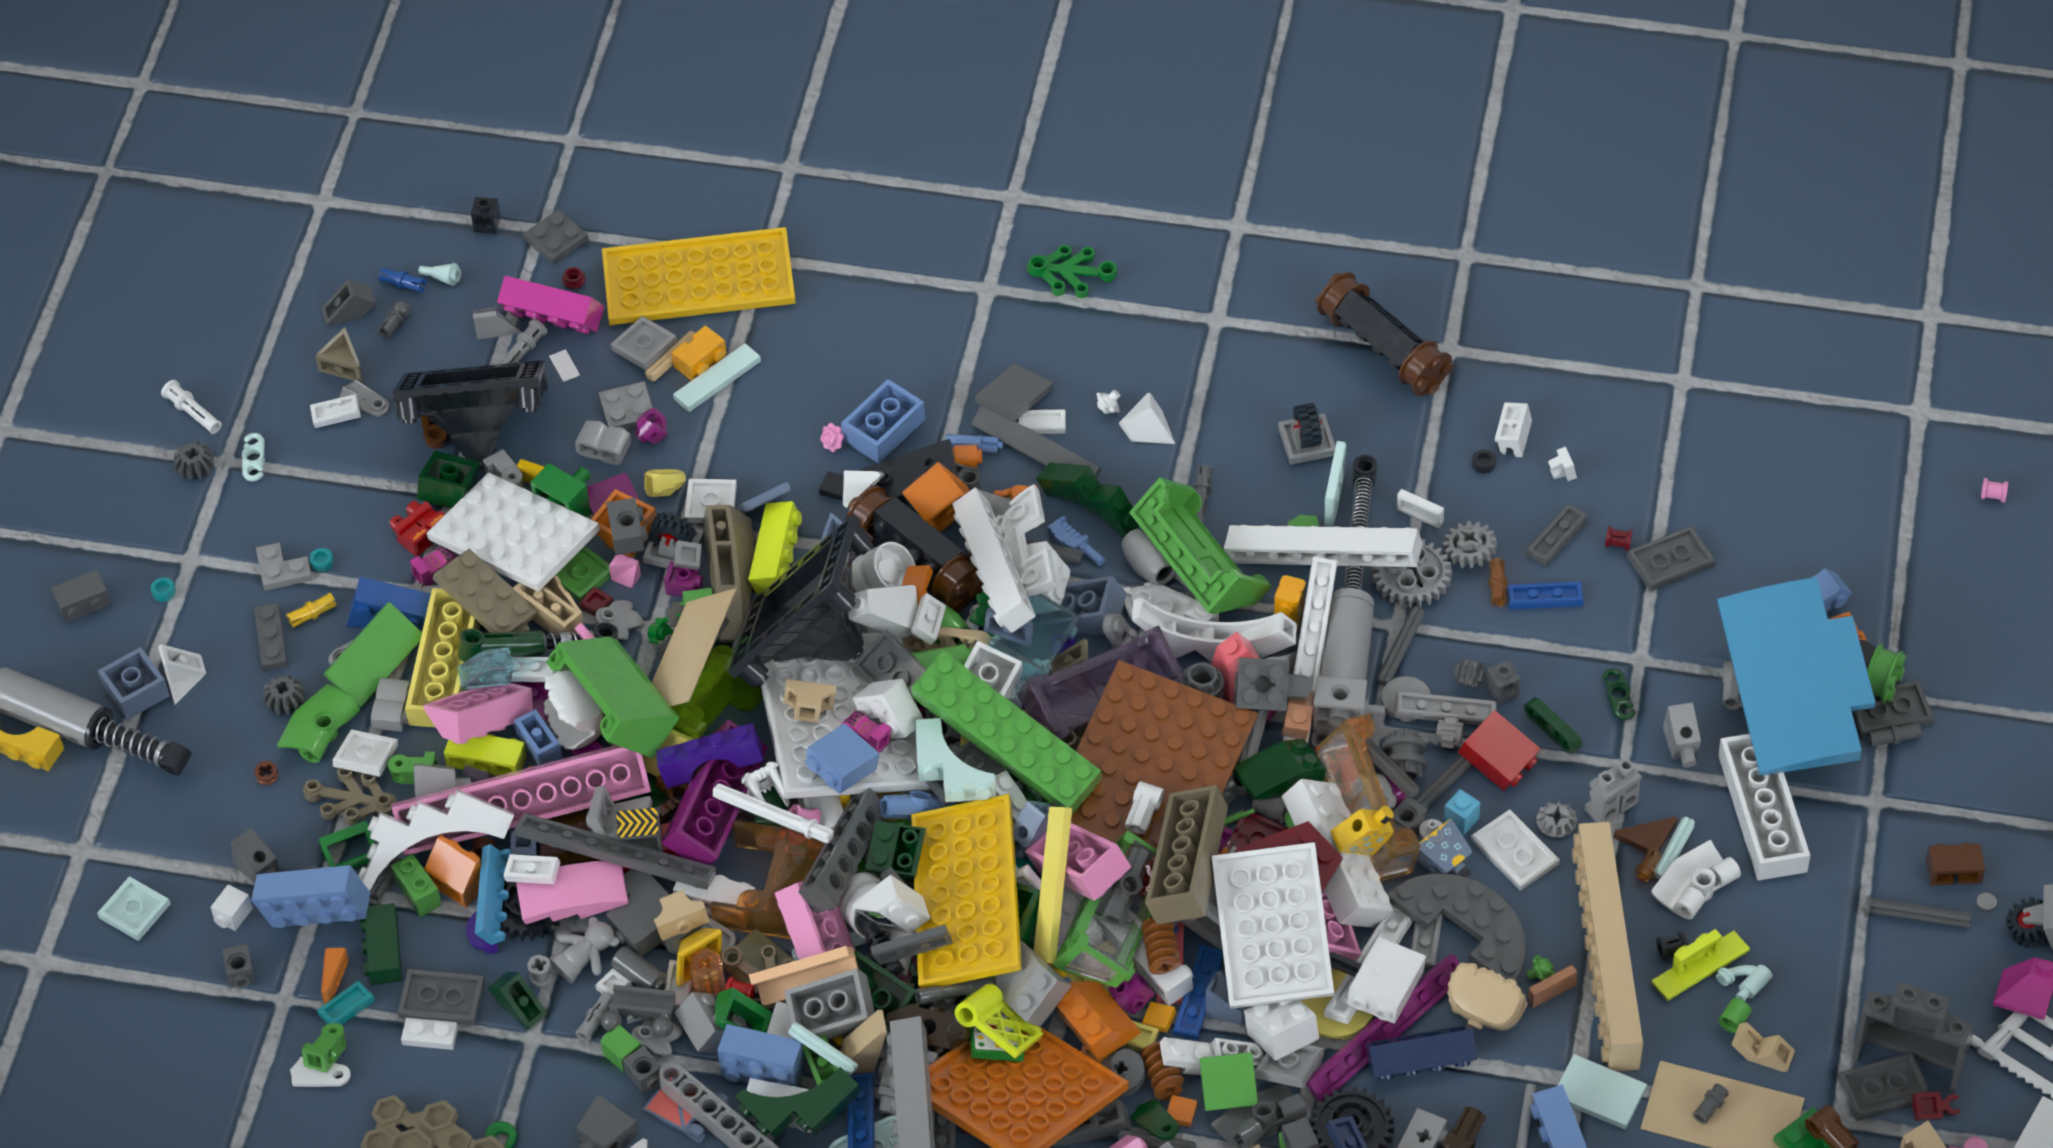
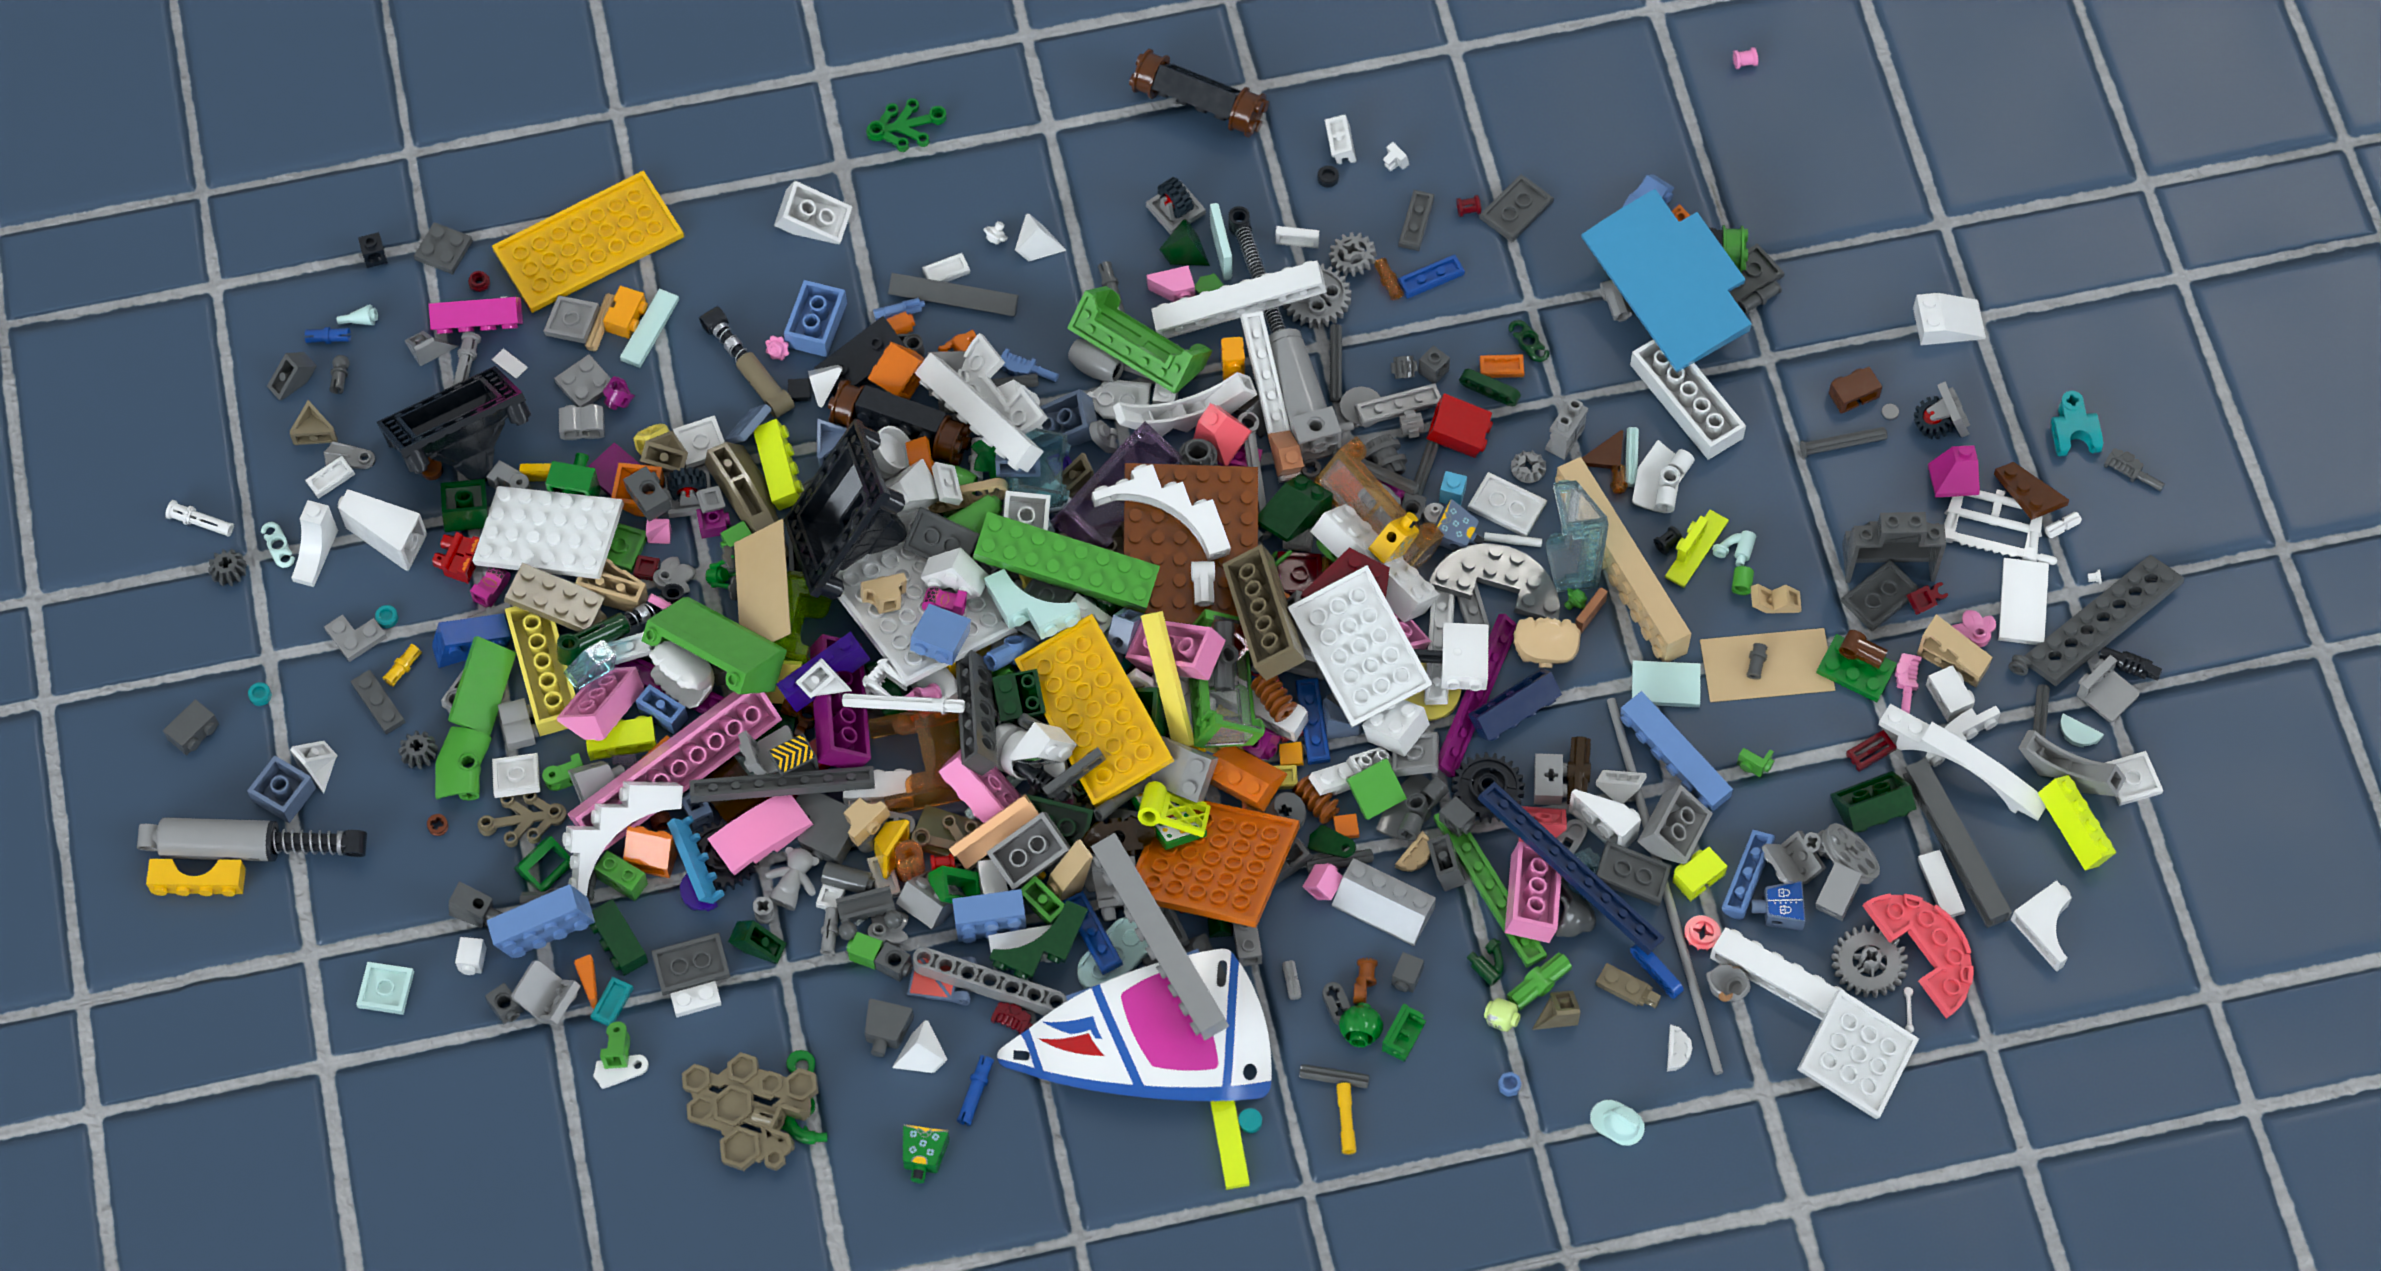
camera: 25 degrees left, 10 degrees up
(281, 969) = (545, 993): none -> light grey bracket
(292, 461) = (317, 537): none -> white arch
(361, 473) = (384, 526): none -> white slope
(531, 869) = (720, 827): white plate -> none
(666, 495) = (664, 452): none -> dark tan slope
(700, 759) = (821, 680): none -> white slope
(795, 442) = (779, 401): none -> piece
(822, 1048) = (1040, 888): light aqua axle -> none
(933, 323) = (812, 214): none -> white slope
(1014, 392) = (912, 252): dark grey tile -> none
(1082, 487) = (1014, 318): dark green arch -> none
(1148, 709) = (1145, 488): none -> white arch
(1265, 508) = (1172, 283): none -> bright pink slope
(1267, 684) = (1254, 439): dark grey brick -> none
(1297, 479) = (1184, 247): none -> dark green slope
(1504, 887) = (1512, 539): none -> white piece
(1557, 915) = (1579, 549): none -> clear light blue windscreen
(1577, 708) = (1502, 365): none -> orange plate
(1682, 733) = (1597, 358): light grey torso -> none

